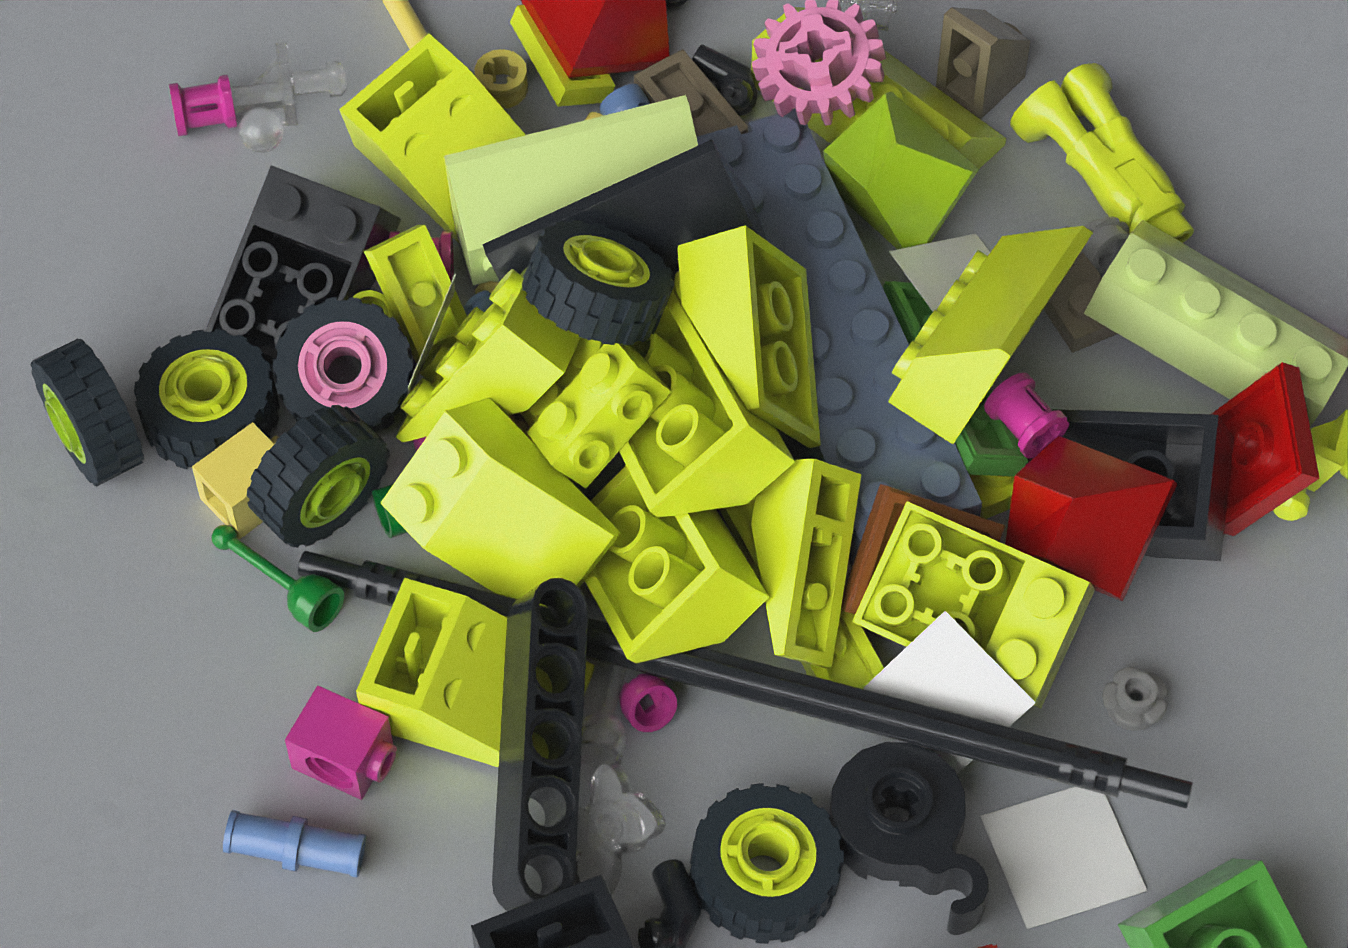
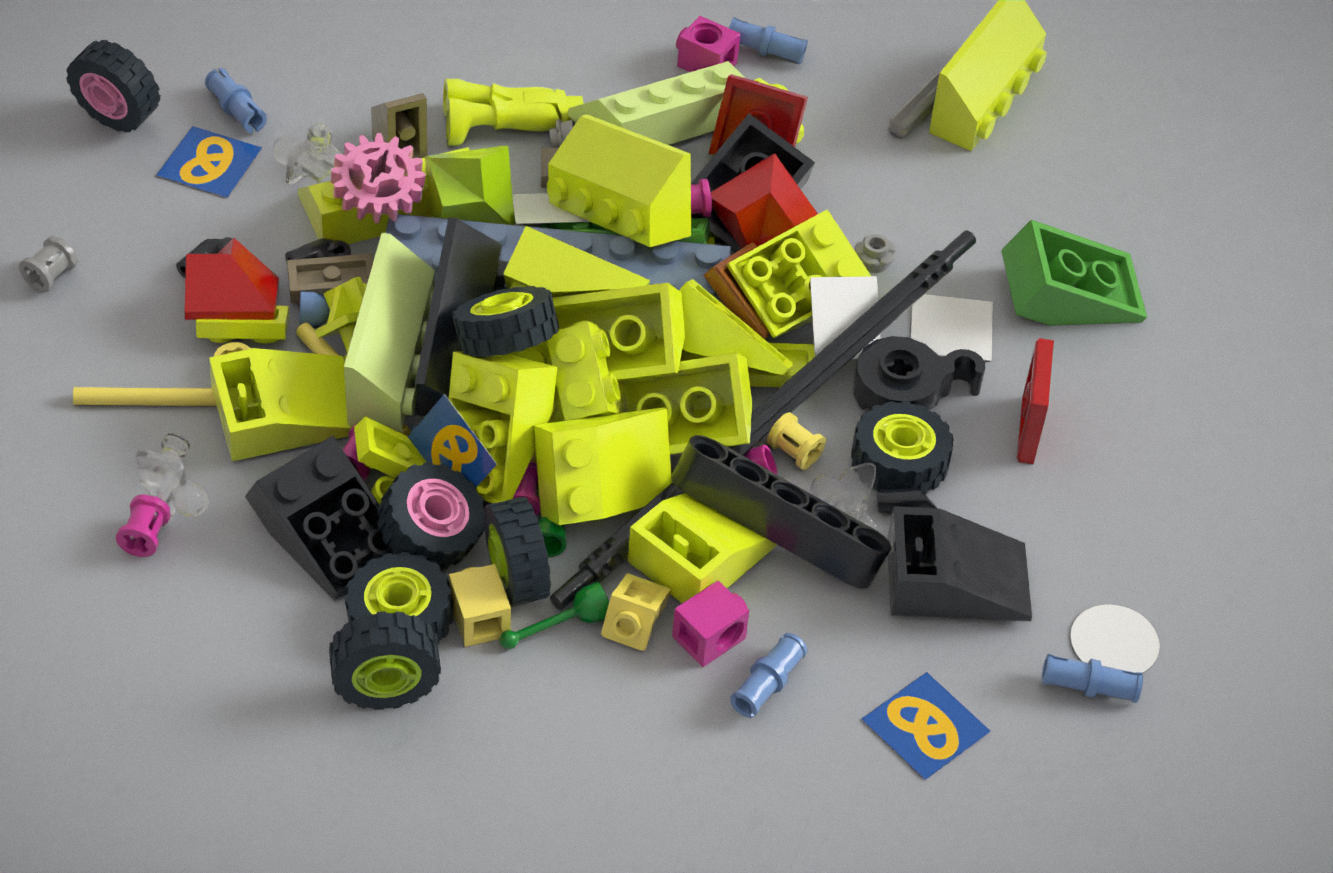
camera: 70 degrees left, 10 degrees down
(324, 647) = (634, 610): none -> light yellow bracket
(708, 727) = (796, 441): none -> light yellow bush

